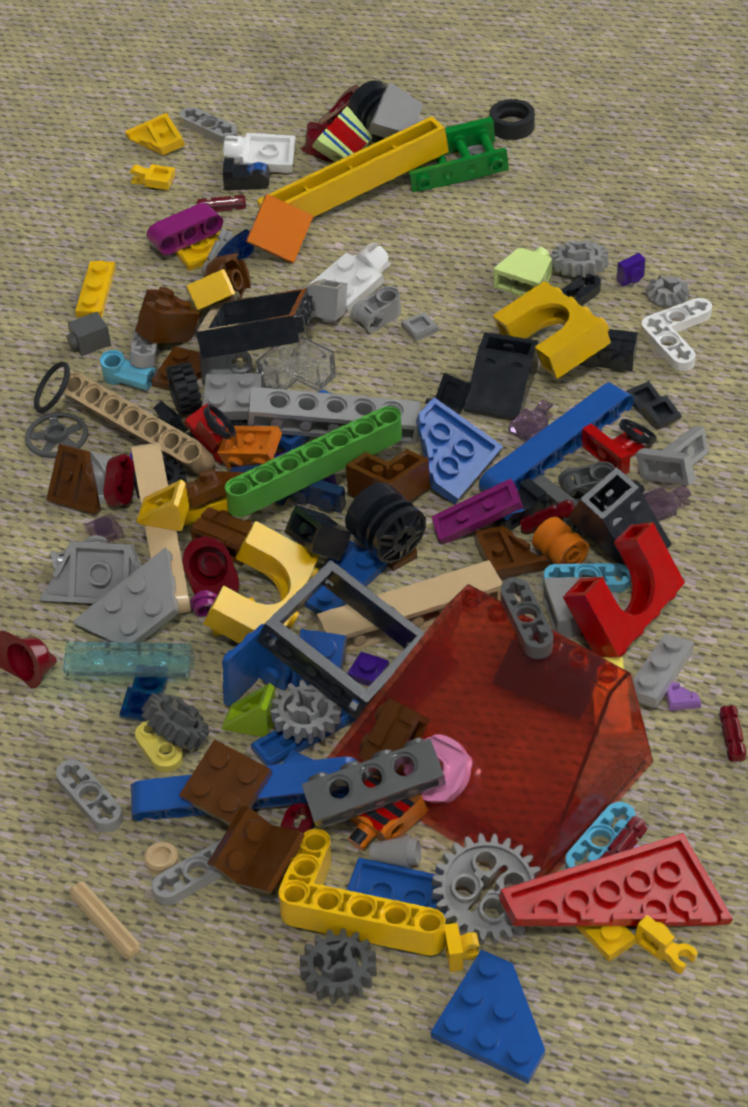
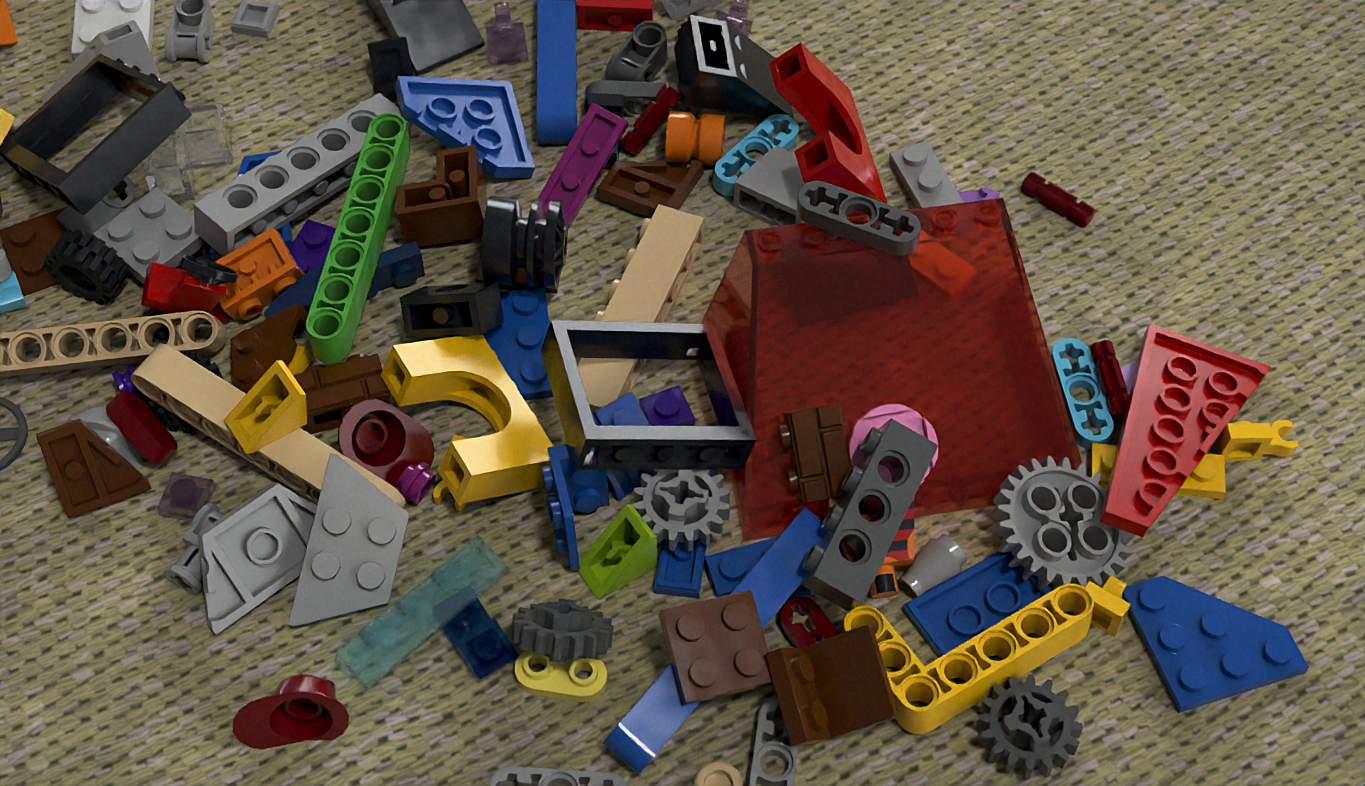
camera: 50 degrees left, 10 degrees up
(170, 416) = (104, 312): black tile -> none

